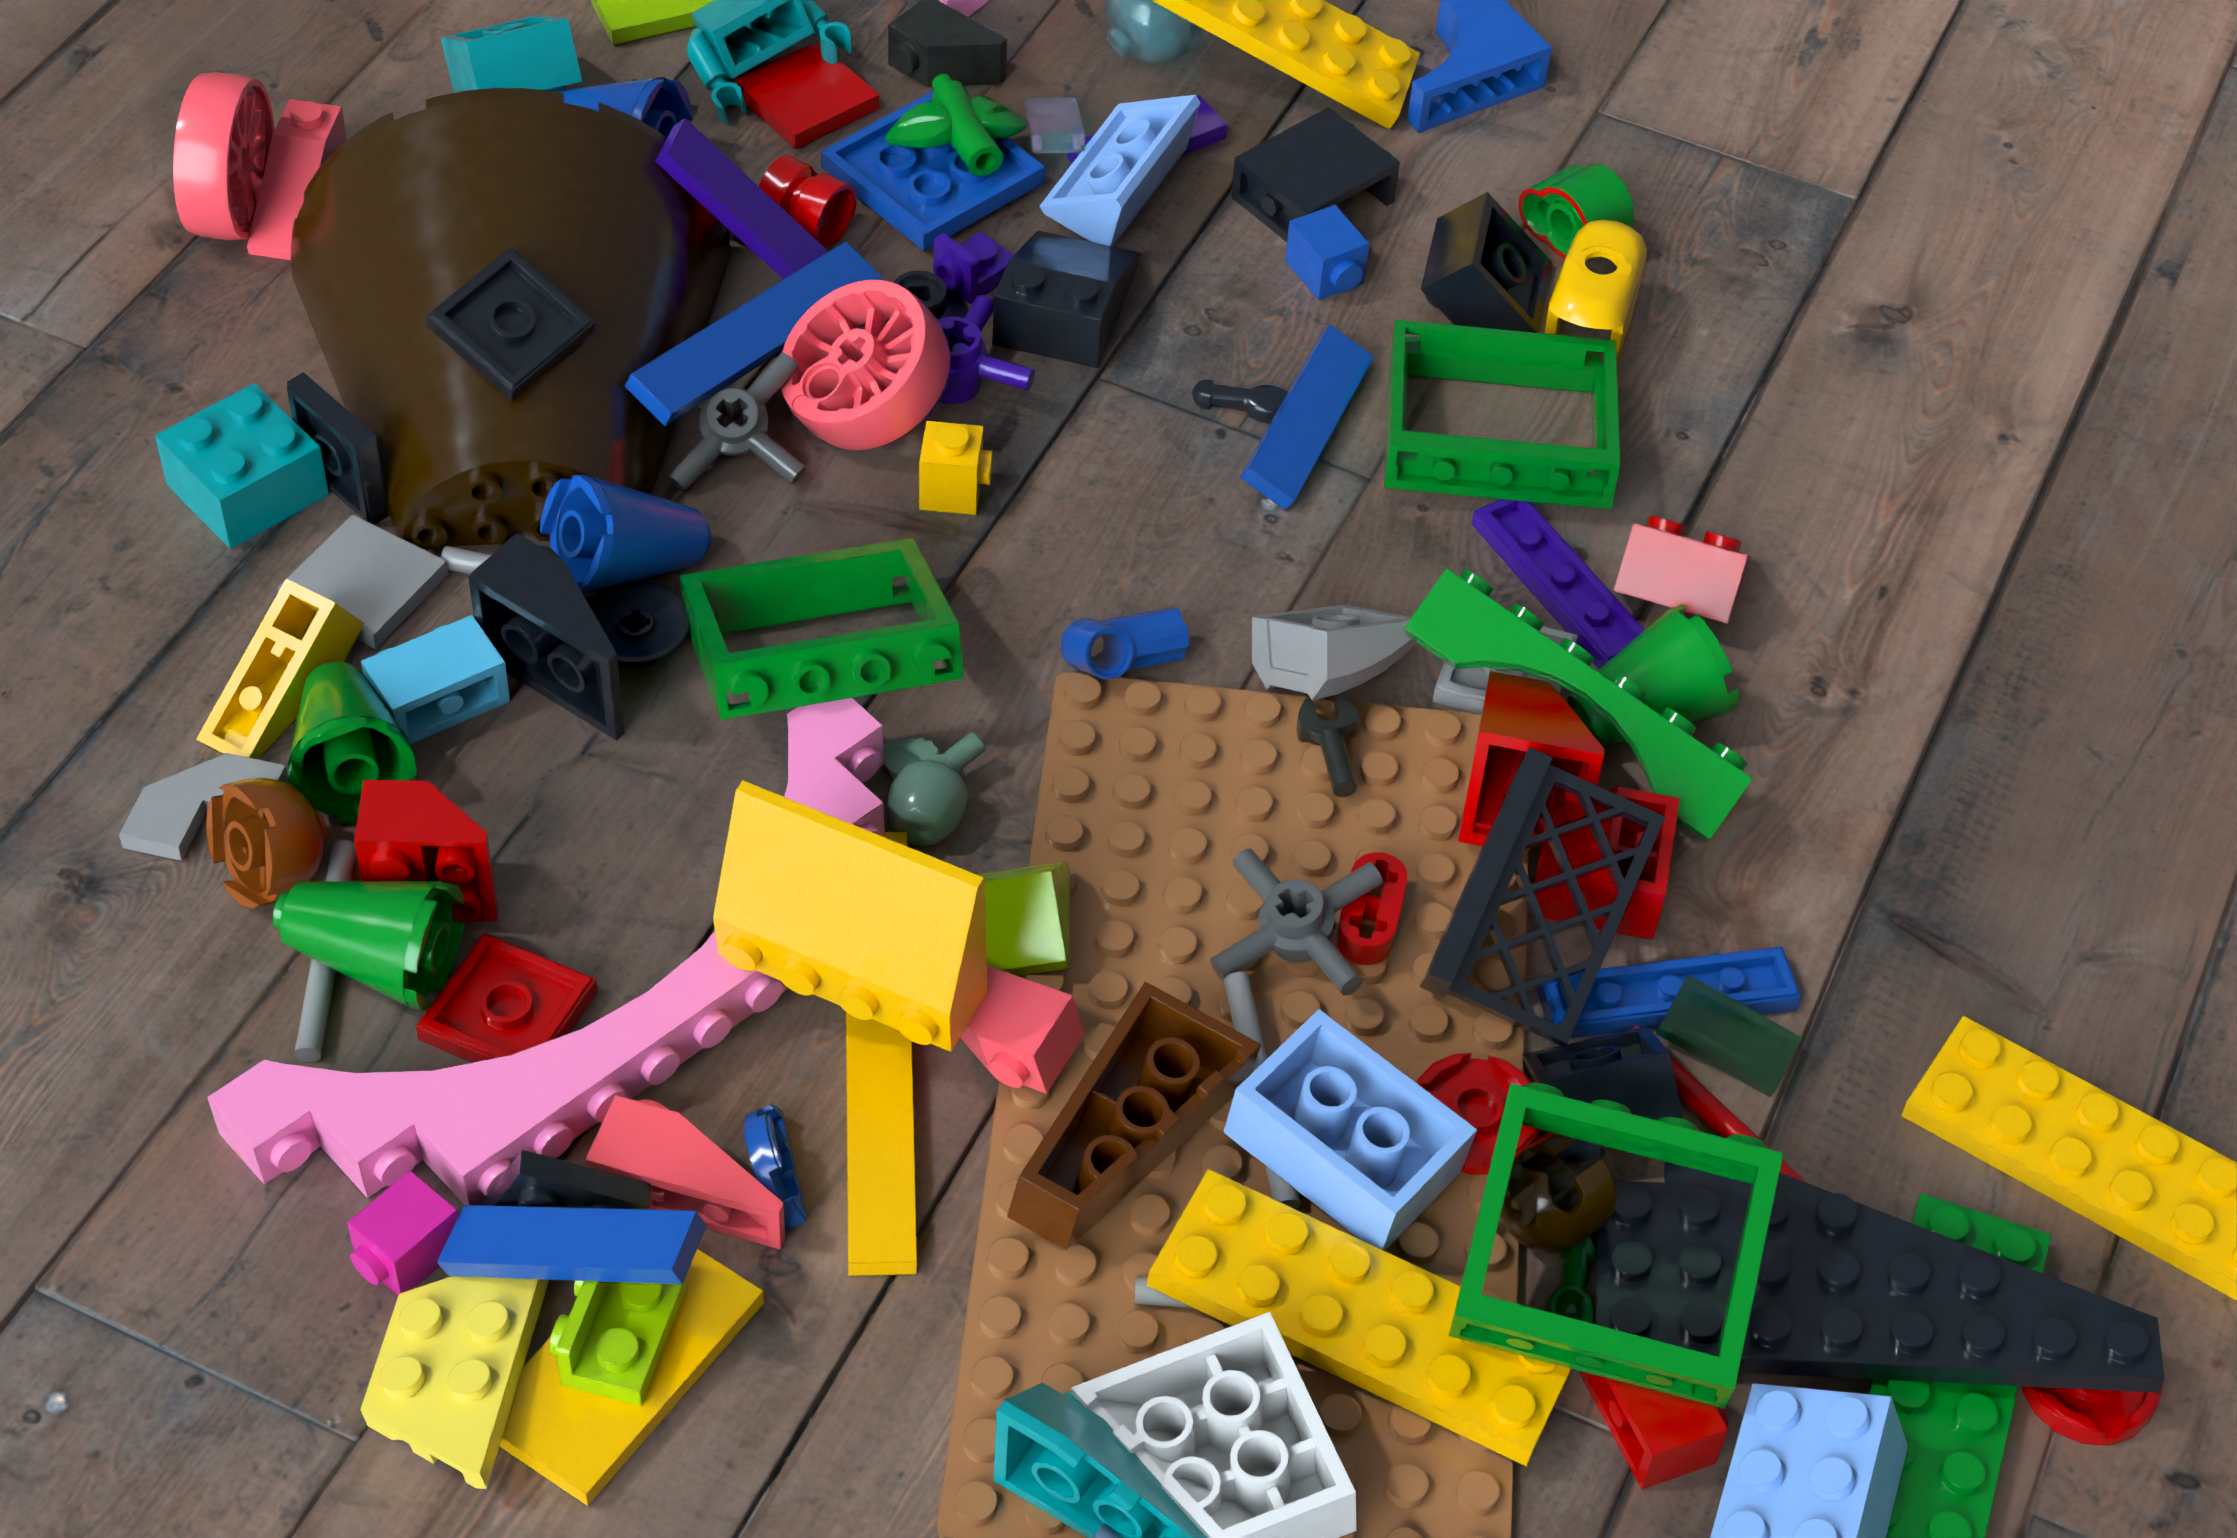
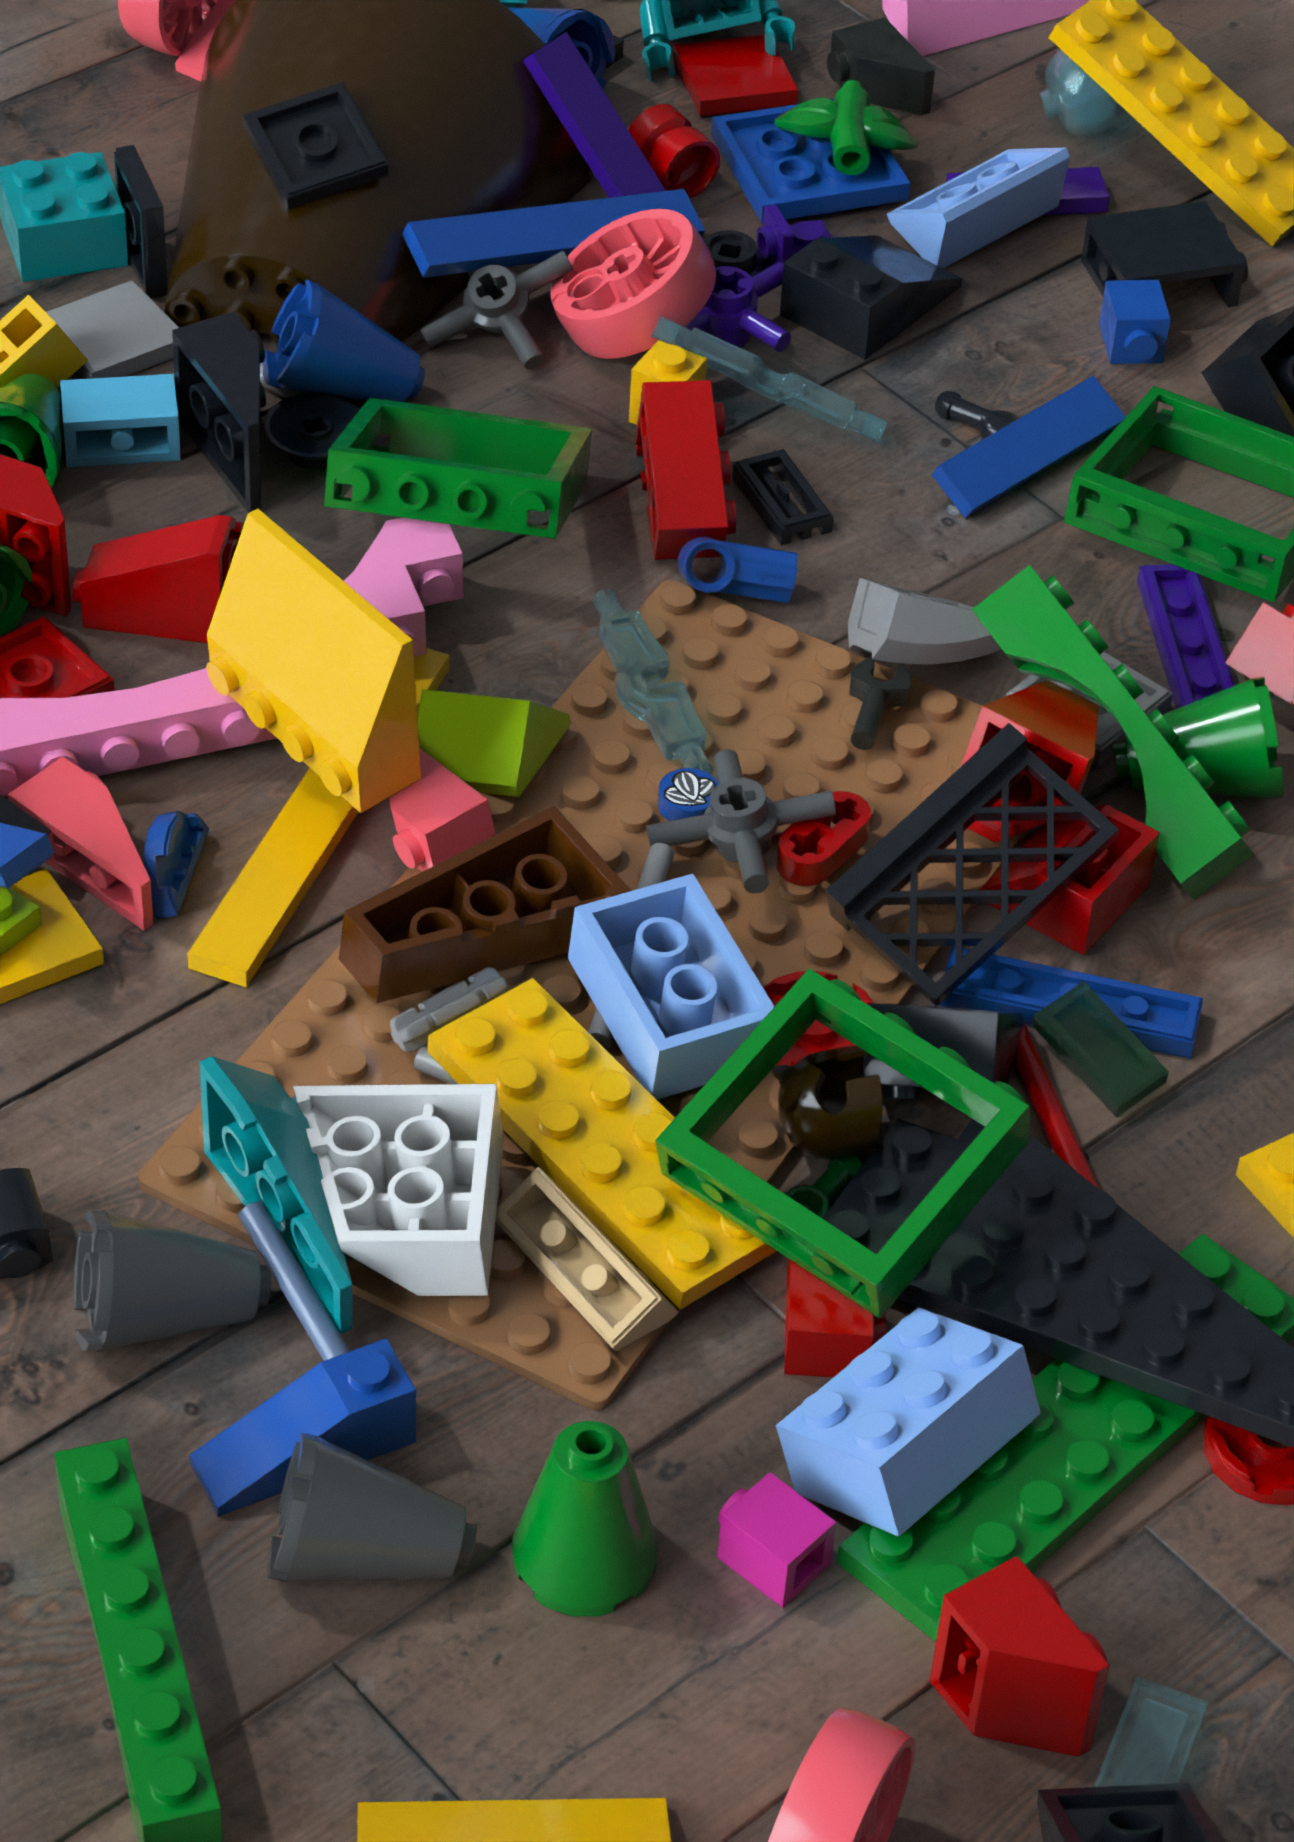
camera: 25 degrees right, 5 degrees down
(591, 853) = (158, 580): none -> red slope
(926, 788) = (486, 628): sand green piece -> none
(1021, 553) = (683, 466): none -> red wedge
(1054, 125) = (941, 153): clear light blue tile -> none
(1060, 429) = (786, 389): none -> clear light blue piece
(1105, 549) = (772, 497): none -> black tile
(1140, 1231) = (412, 1028): none -> light grey axle
(1143, 817) = (639, 664): none -> clear light blue piece
(1226, 909) = (685, 793): none -> tile
(1420, 1456) = (582, 1261): none -> tan slope

